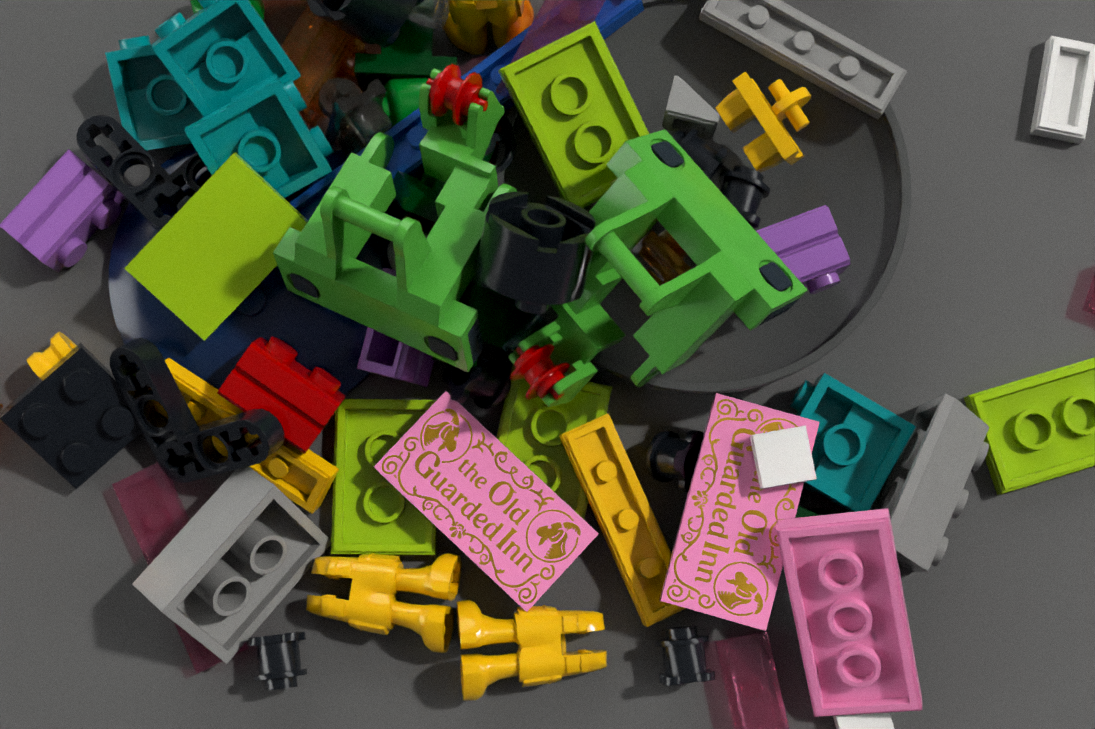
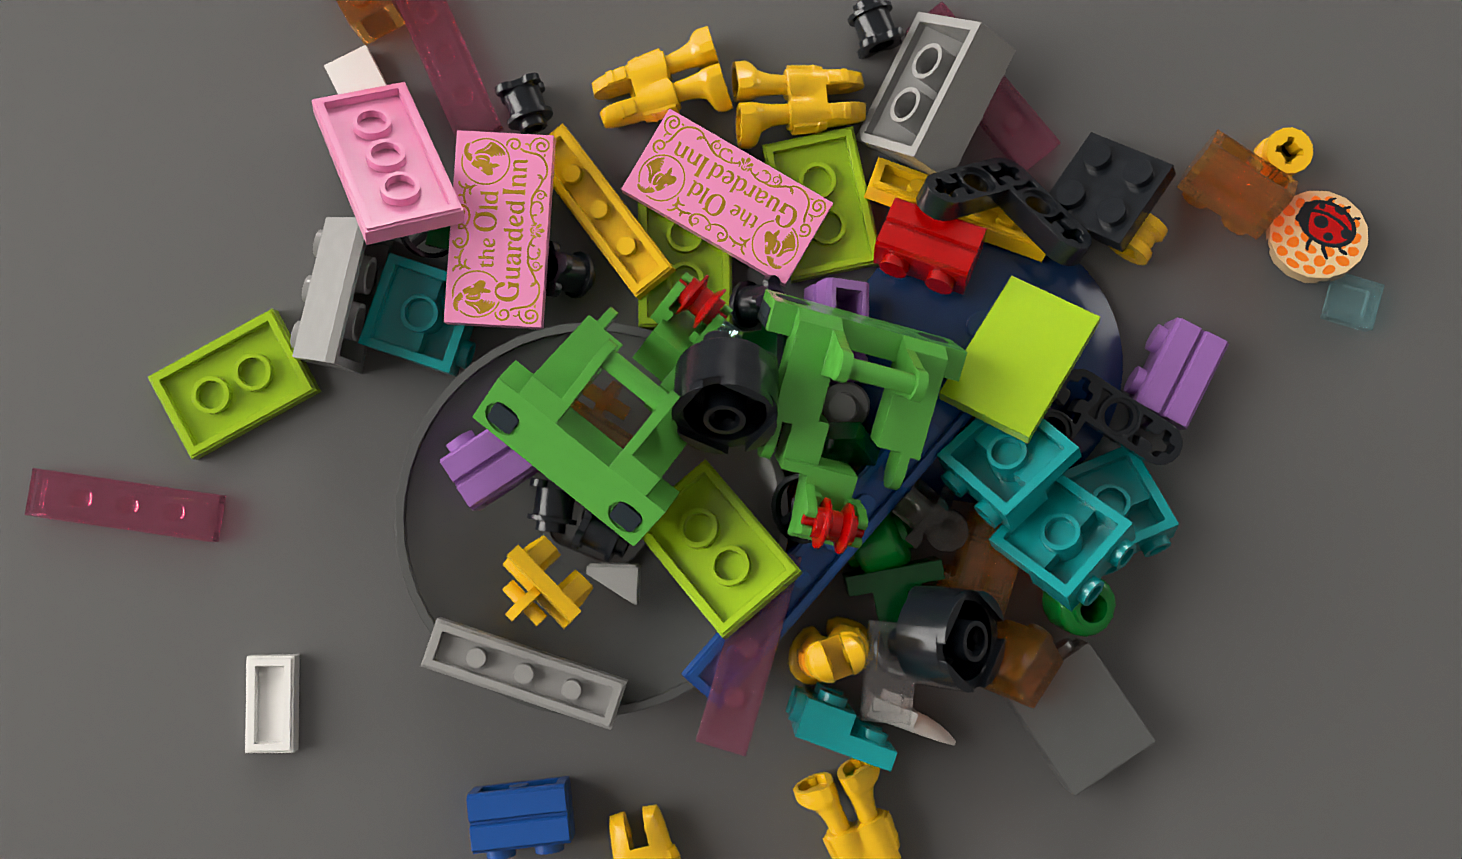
camera: 165 degrees right, 5 degrees up
(783, 457) = (469, 279): white tile -> none

